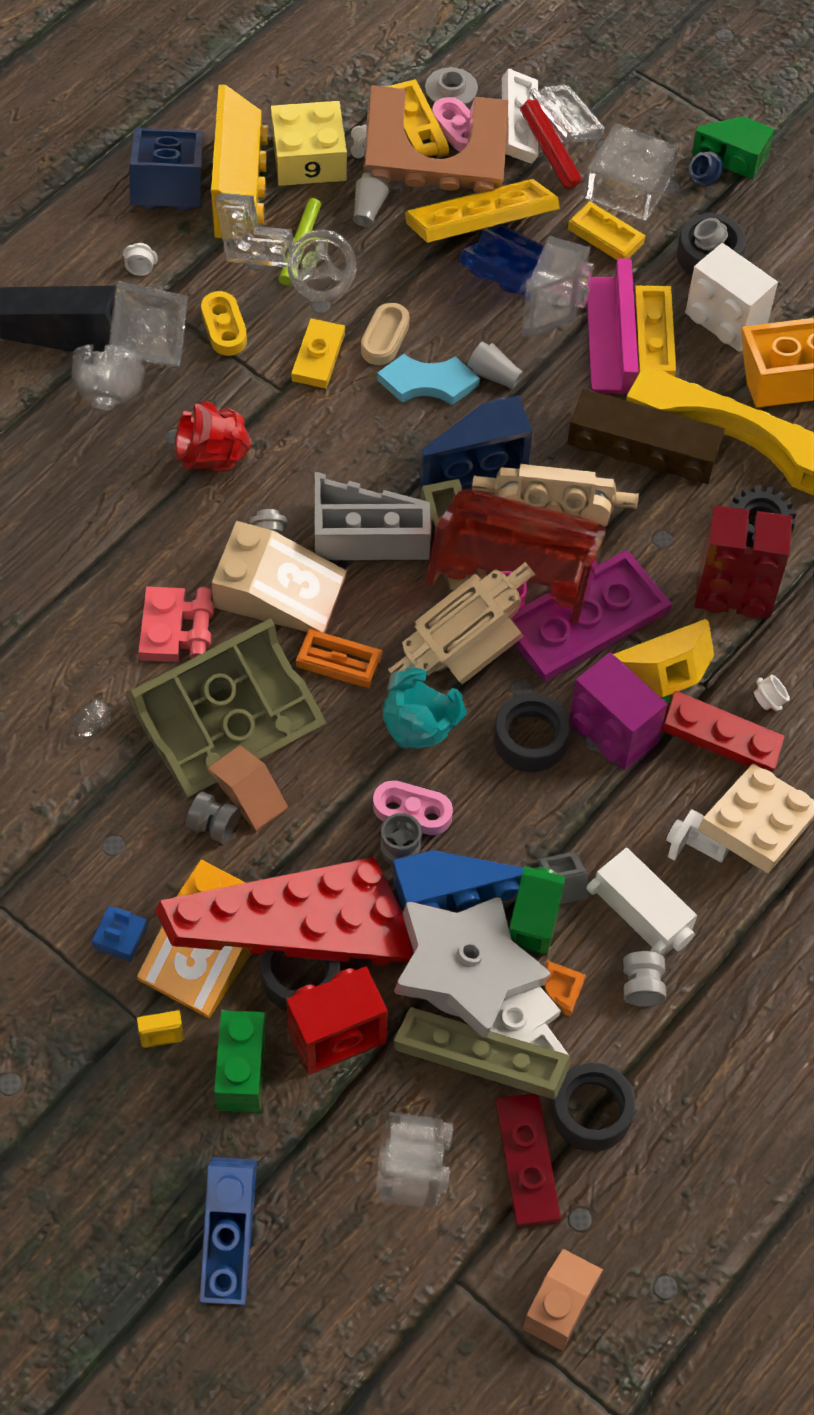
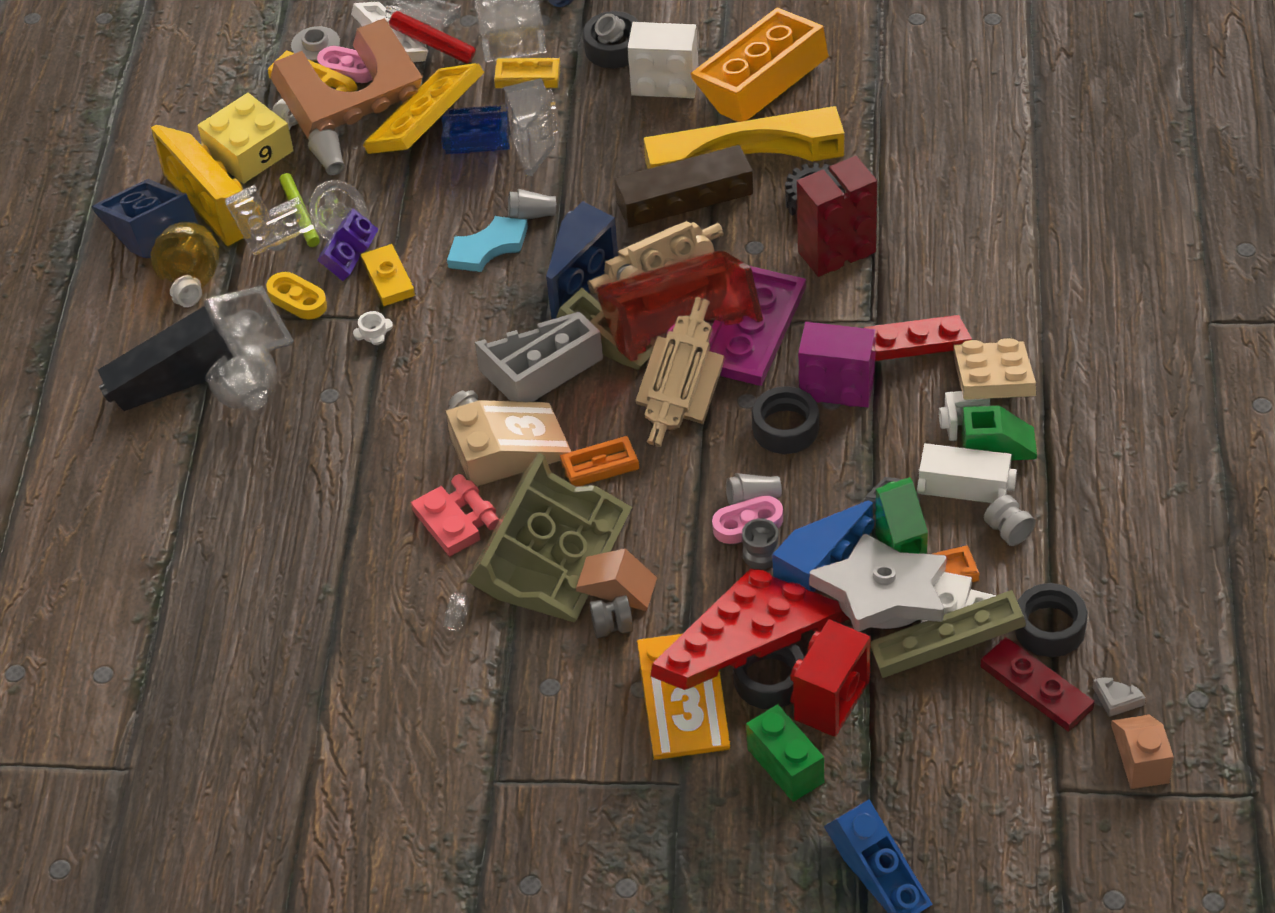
camera: 30 degrees left, 10 degrees down
(120, 933) = (613, 736): blue tile -> none
(160, 1029) = (707, 772): yellow tile -> none
(163, 223) = (185, 250): none -> clear yellow cylinder
(211, 438) = (376, 373): red helmet -> none
(260, 389) = (372, 327): none -> white plate
(306, 301) = (347, 244): none -> dark purple slope
(385, 333) = (425, 233): tan tile -> none
(412, 1160) = (966, 727): clear brick -> none
(418, 714) = (698, 457): teal helmet -> none
(442, 778) = (747, 486): none -> light grey cone
(591, 1228) = (1117, 696): none -> light grey tile
(612, 331) = (596, 133): dark pink panel -> none
(655, 328) = (622, 115): yellow plate -> none
(672, 659) = (839, 306): yellow slope -> none
(707, 885) = (998, 431): none -> green slope
(771, 693) = (925, 294): white plate -> none

